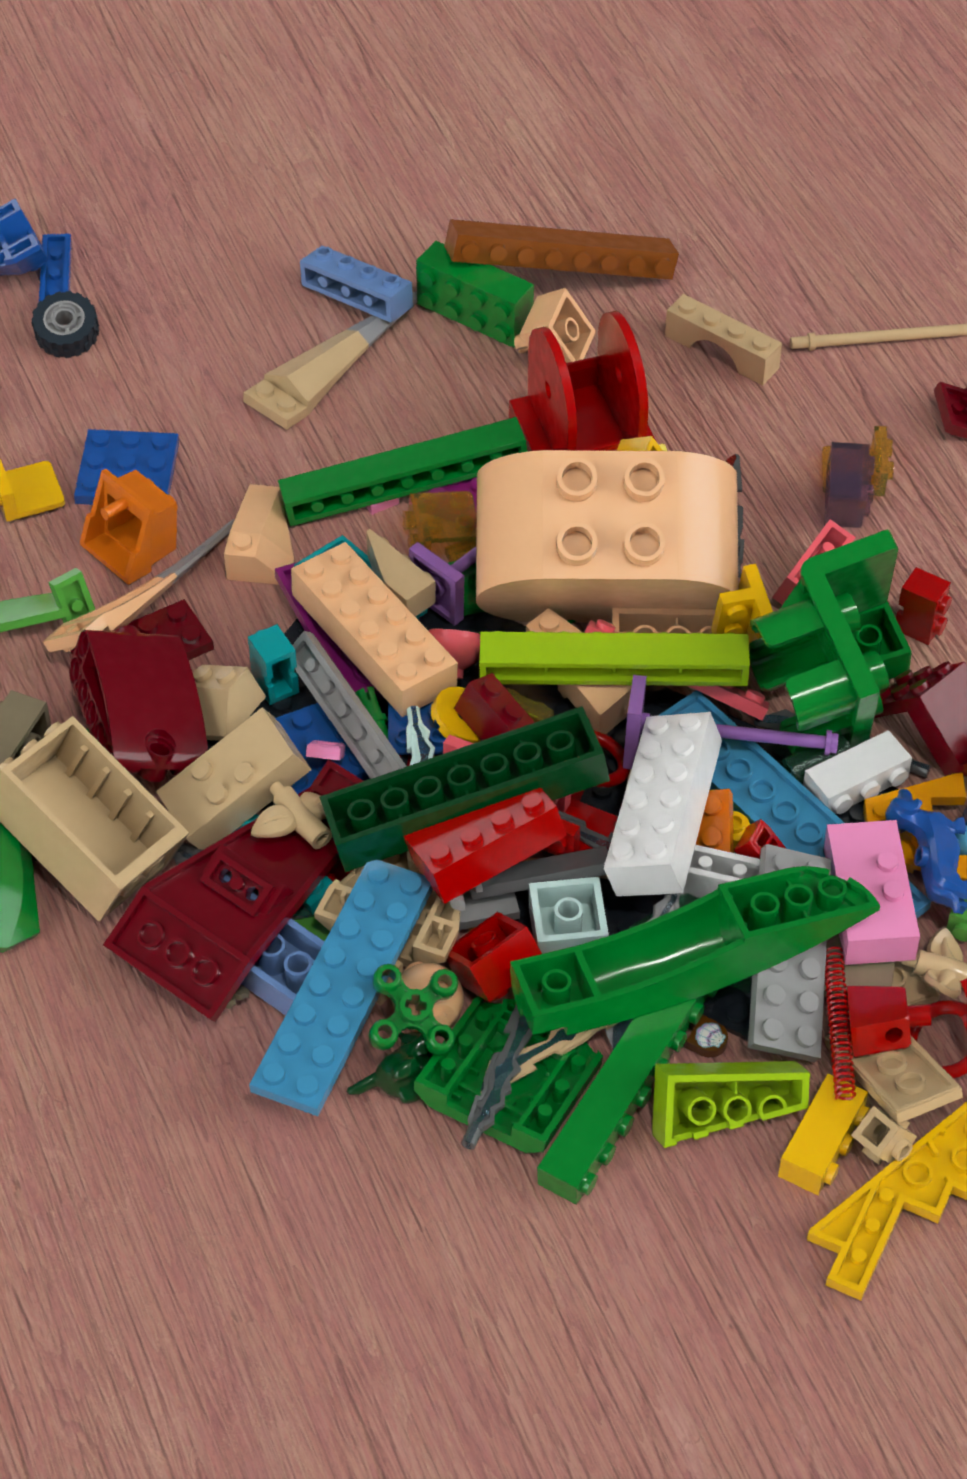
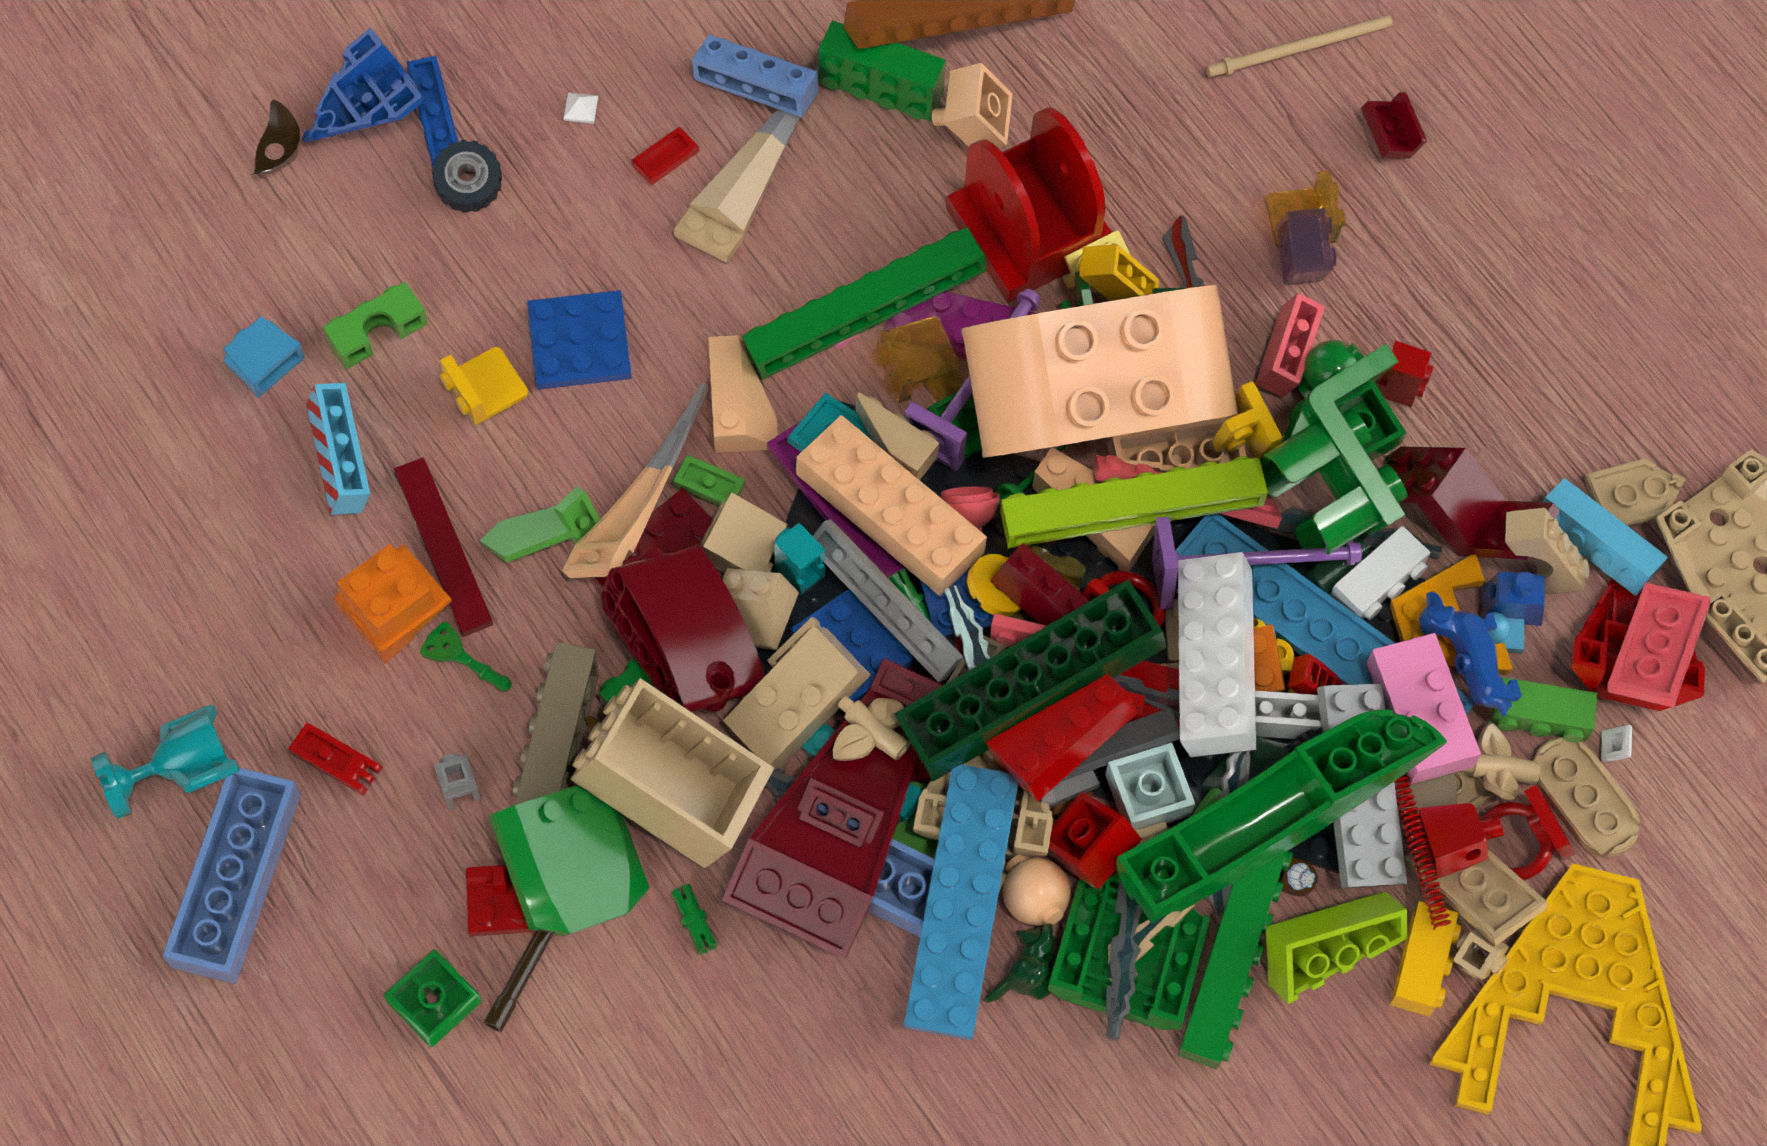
camera: 15 degrees left, 15 degrees up
(75, 968) = (694, 919): none -> green pin
(130, 525) = (608, 416): orange piece -> none
(190, 292) = (581, 108): none -> white slope
(211, 598) = (707, 480): none -> bright green plate
(220, 637) = (741, 536): none -> tan piece
(255, 338) = (665, 155): none -> red tile
(325, 750) = (877, 648): bright pink tile -> none
(424, 1002) = (1026, 928): green gear -> none
(752, 351) = (1171, 91): tan arch -> none

